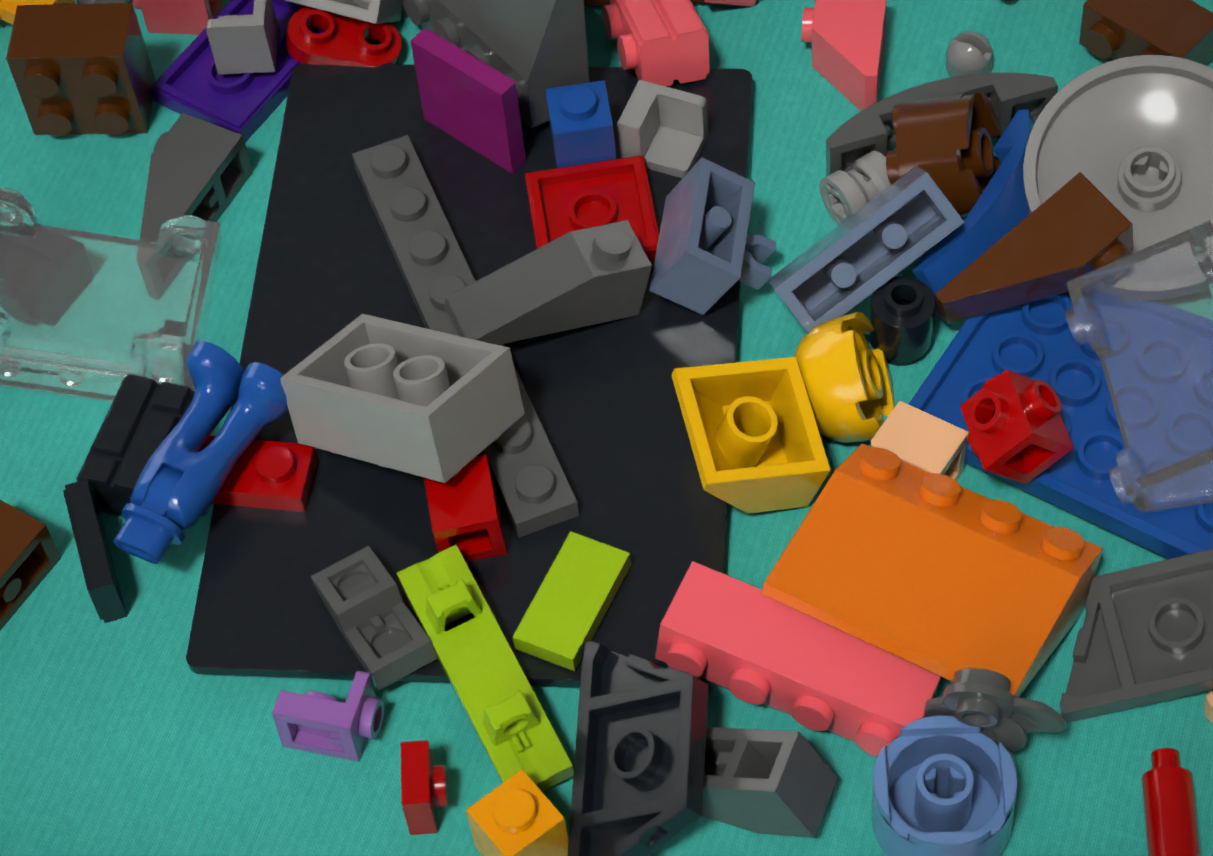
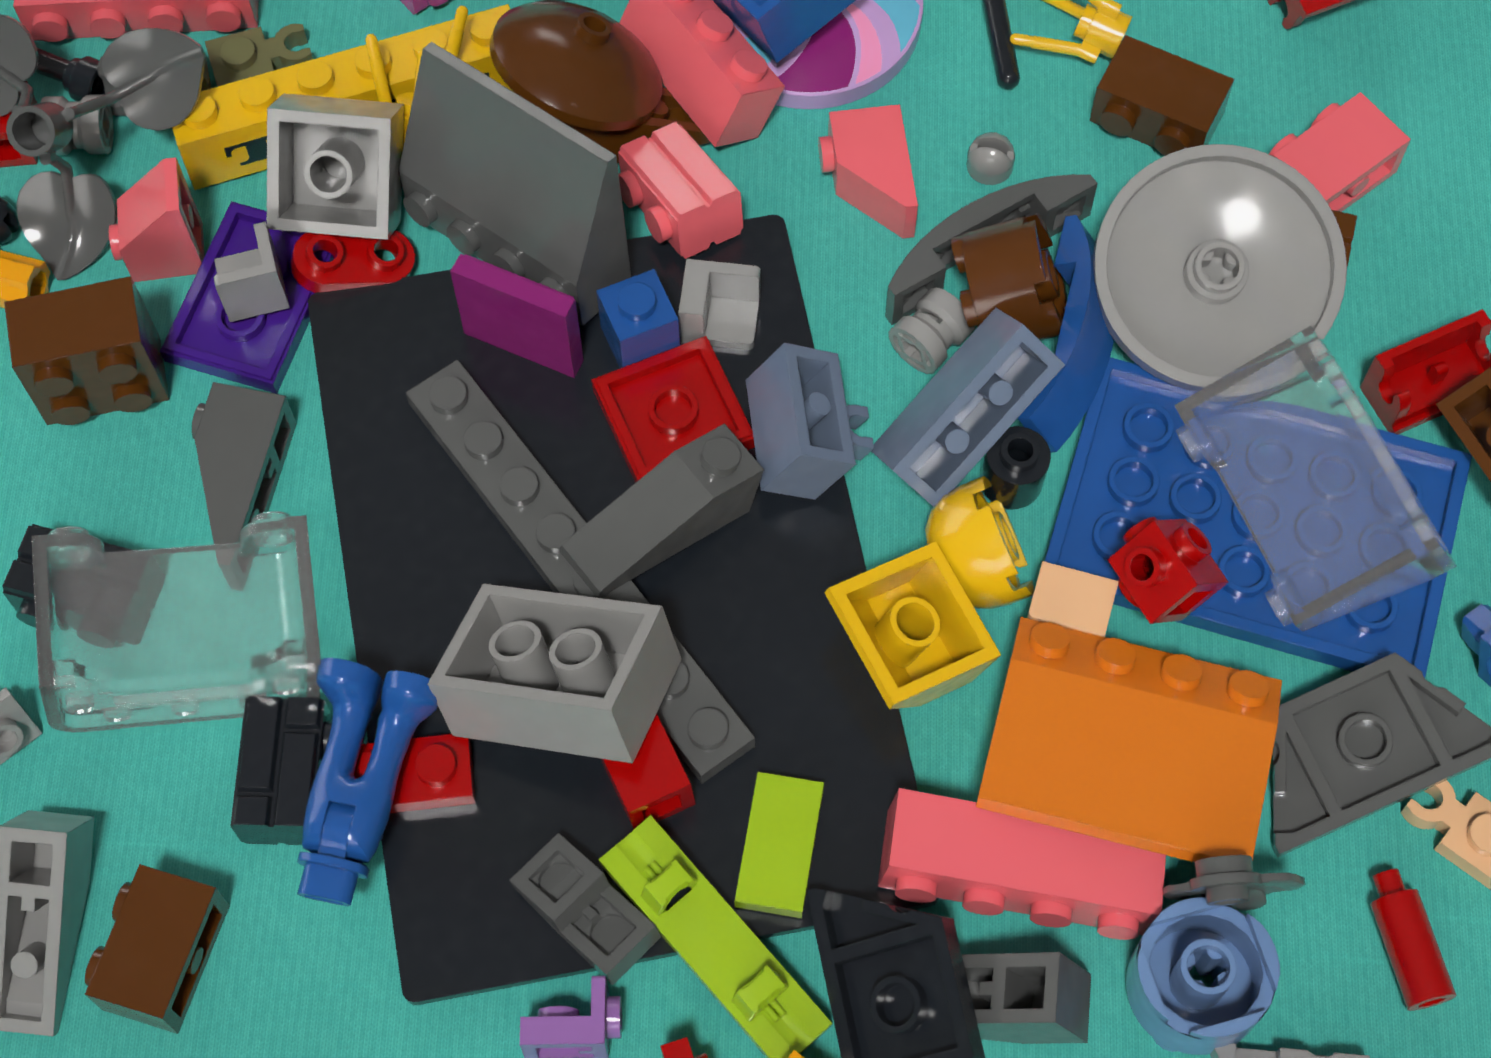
camera: 20 degrees left, 10 degrees up
(94, 551) = (269, 897): black tile -> none
(1033, 261) = (1153, 373): reddish brown slope -> none

